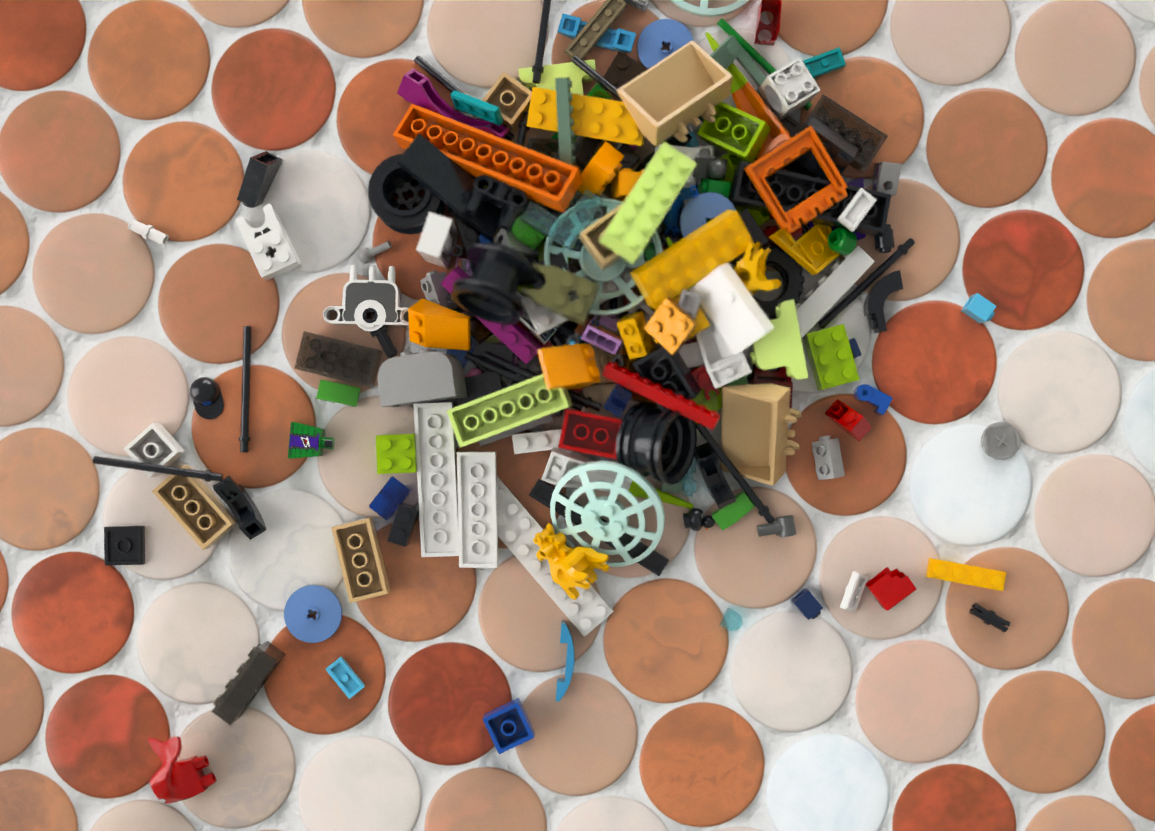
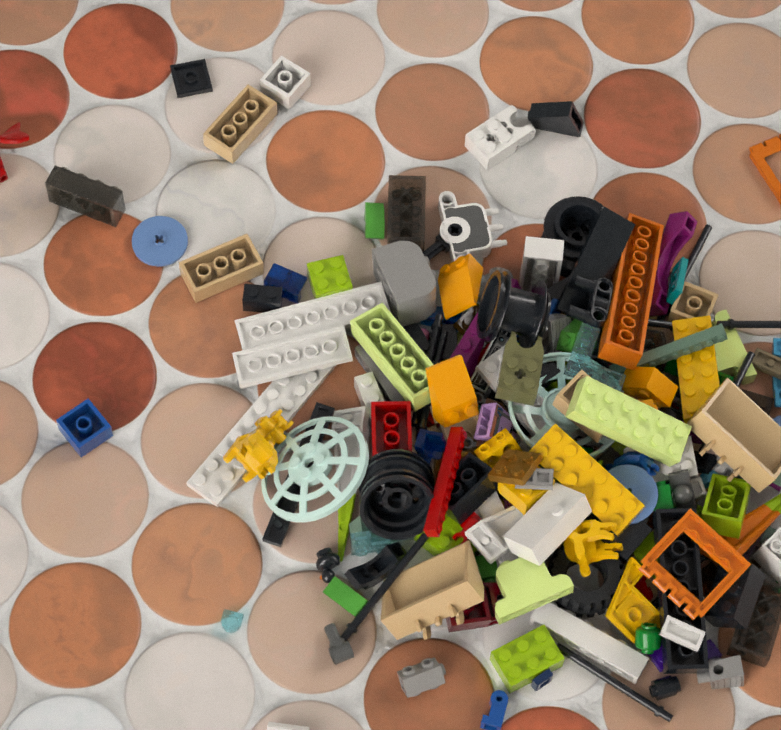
camera: 80 degrees right, 25 degrees down
(148, 232) = (482, 43): white pin -> none
(207, 397) = (343, 117): black cap -> none
(208, 475) = (272, 124): black bar -> none
(242, 506) = (250, 162): black arch -> none
(245, 389) = (357, 146): black bar -> none
(307, 441) = (322, 203): torso -> none
(345, 677) = (104, 278): medium azure plate -> none
(366, 255) = (511, 221): light grey bar -> none
(563, 683) = (158, 473): dark azure slope -> none
(807, 604) = (264, 689): dark blue brick -> none
(848, 420) = (466, 691): red slope -> none
(876, 297) = (603, 693): black arch -> none

